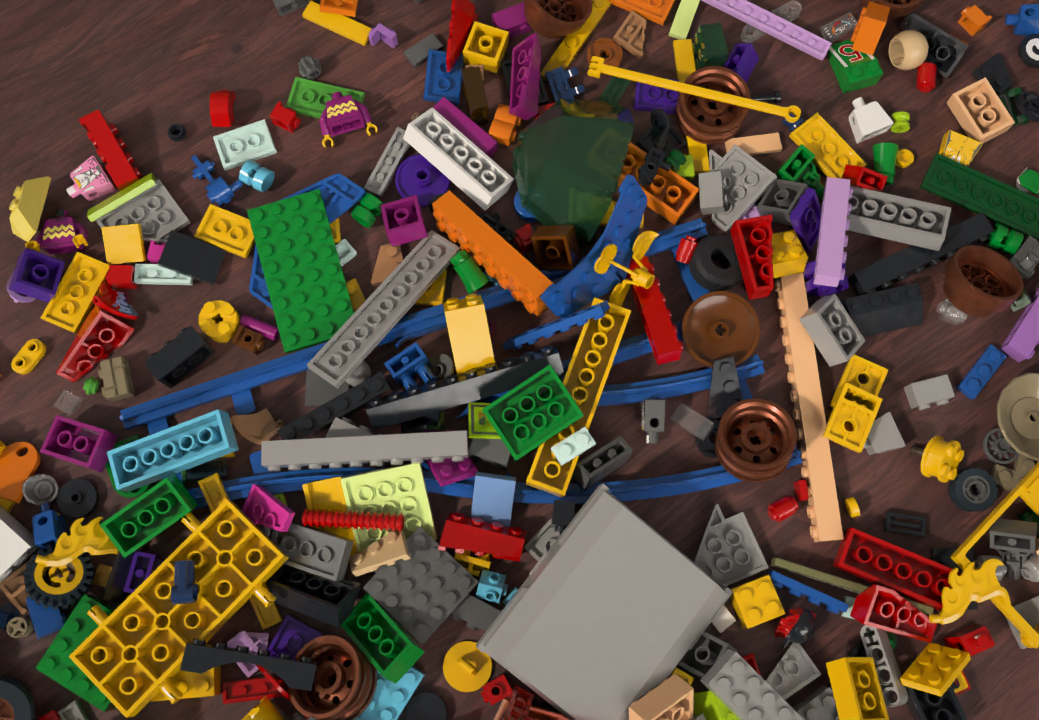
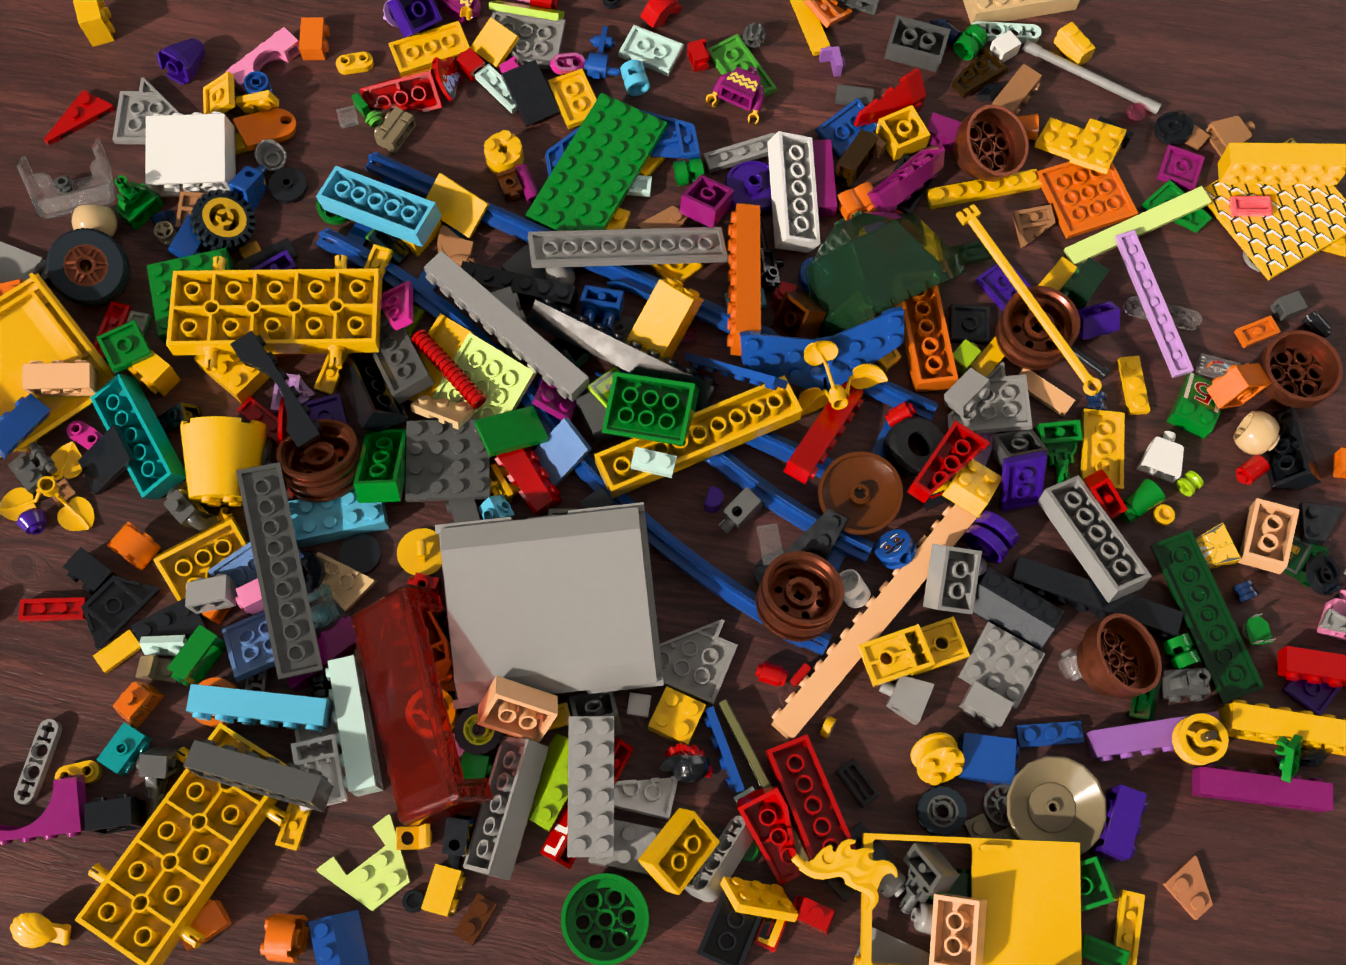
camera: 45 degrees right, 5 degrees down
(72, 385) = (360, 105): none -> green tile
(79, 443) = (325, 146): magenta brick -> none
(82, 539) = (267, 216): yellow piece -> none
(149, 515) = (319, 233): green brick -> none
(179, 357) = (450, 151): black brick -> none
(184, 585) = (288, 298): dark blue piece -> none
(193, 213) = (564, 63): none -> dark pink plate
(227, 393) = (457, 205): none -> yellow tile
(446, 520) = (511, 431): none -> green tile
(468, 271) = (715, 278): green plant -> none
(559, 85) = (931, 209): dark blue plate -> none
(602, 463) = (669, 503): dark grey brick -> none
(607, 46) = (1001, 213): dark orange plate -> none
(625, 428) = (713, 500): none -> dark purple brick
(653, 160) = (946, 322): black piece -> none
(676, 159) = (960, 340): dark green wheel -> none
(775, 344) = (895, 549): none -> blue head
(778, 396) = (855, 590): none -> white wheel
(801, 88) = (1133, 385): none -> yellow plate
(832, 232) = (1028, 502): lavender brick -> none
(909, 355) = (1002, 663): none -> light grey plate
(966, 424) = (988, 758): none -> blue brick
(1000, 161) = (1246, 591): none -> dark blue wheel

